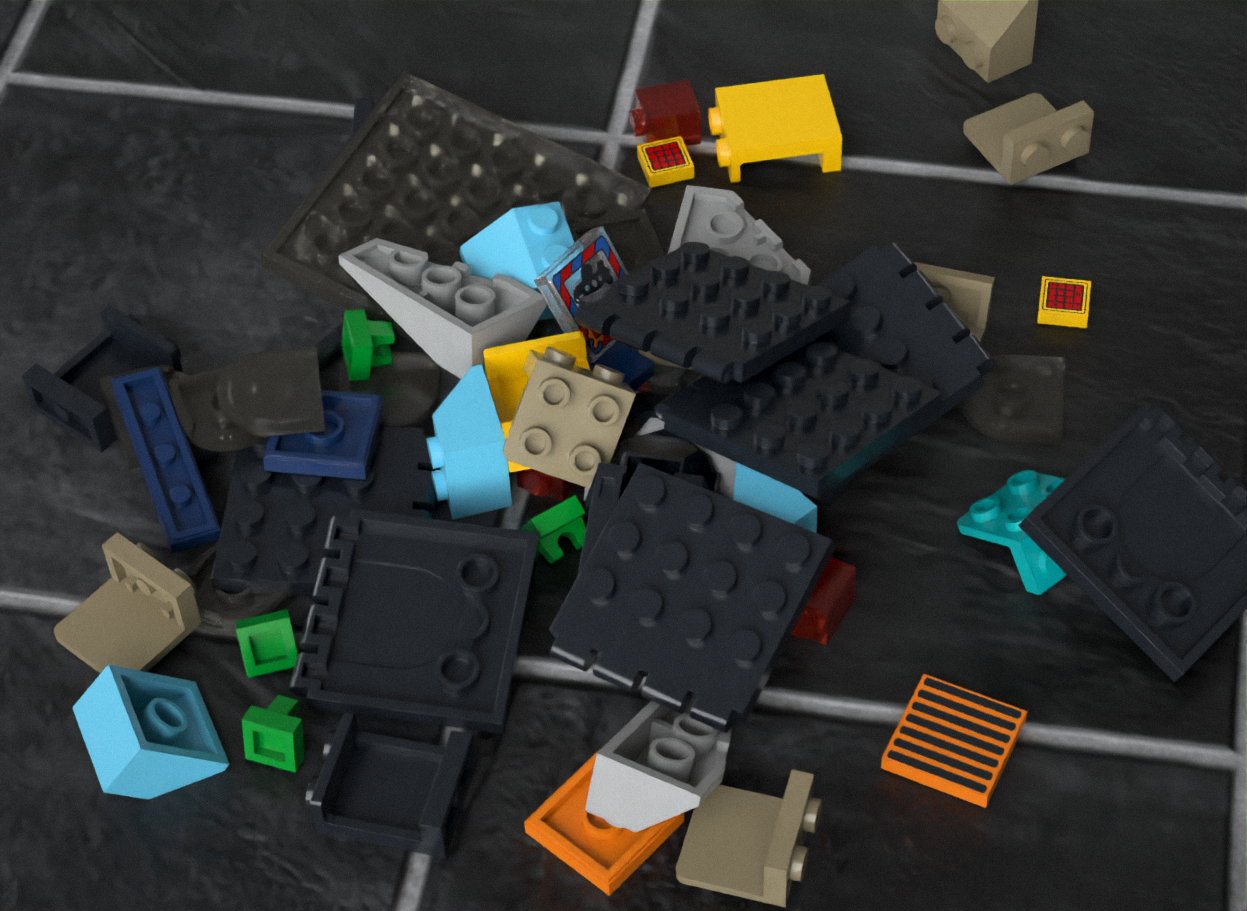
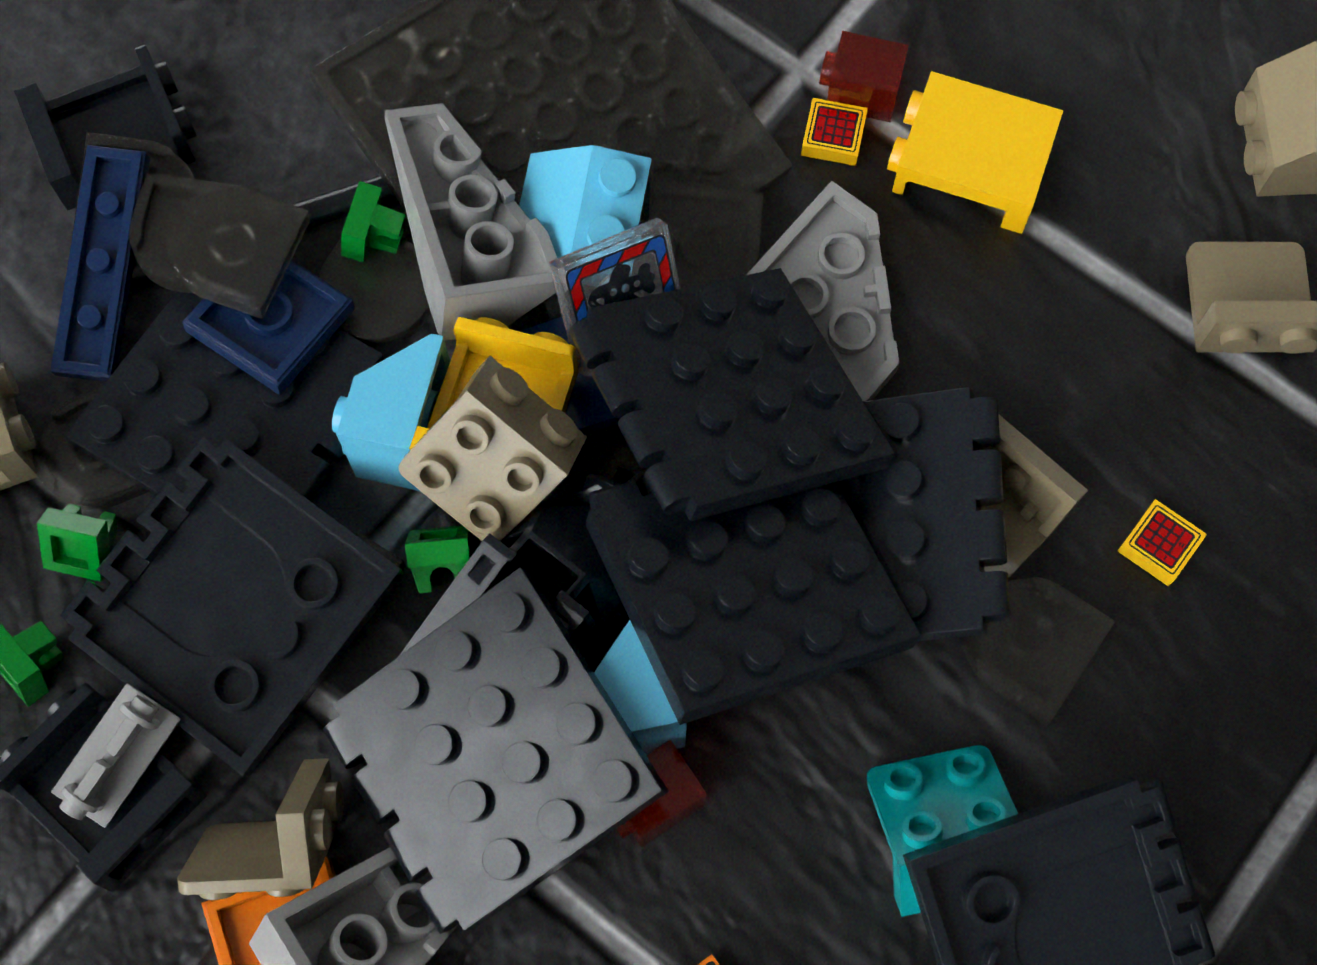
camera: 25 degrees right, 20 degrees up
(396, 751) = (114, 757): none -> light grey hinge
(582, 715) = (270, 855): none -> dark tan bracket

